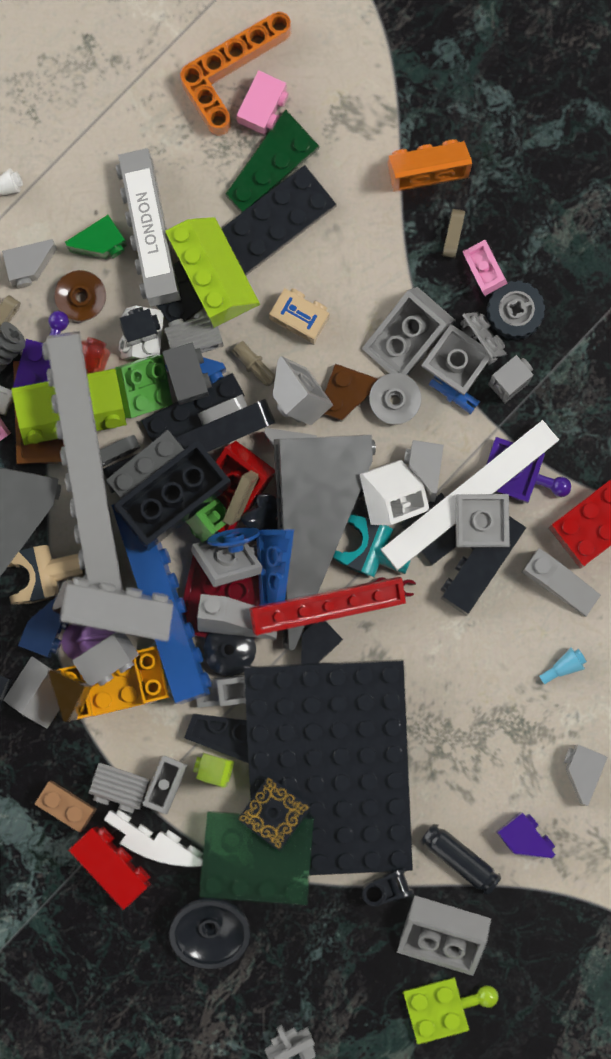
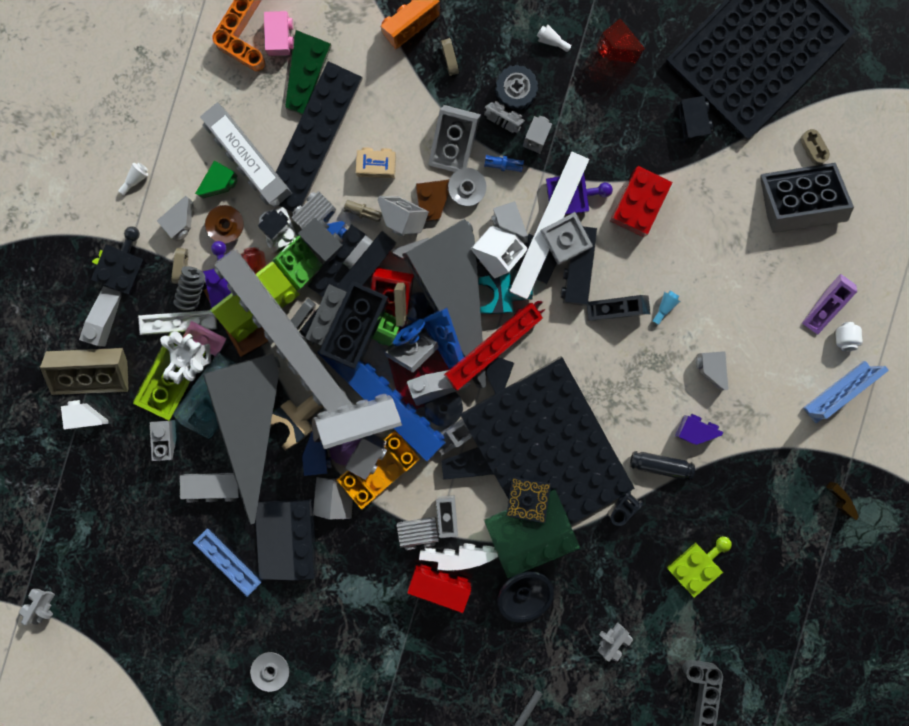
camera: 25 degrees left, 5 degrees up
(65, 806) = (389, 563): medium nougat brick -> none
(69, 693) = (354, 491): dark brown slope -> none
(212, 269) = (302, 161): lime slope -> none
(213, 769) = (474, 491): lime slope -> none
(444, 935) = (676, 519): light grey slope -> none
(457, 359) = (495, 139): light grey slope -> none
(485, 267) = (482, 69): bright pink plate -> none
(505, 638) = (618, 307): none -> black slope
(561, 582) = (635, 252): light grey slope -> none
(586, 269) = (550, 37): none -> white cone

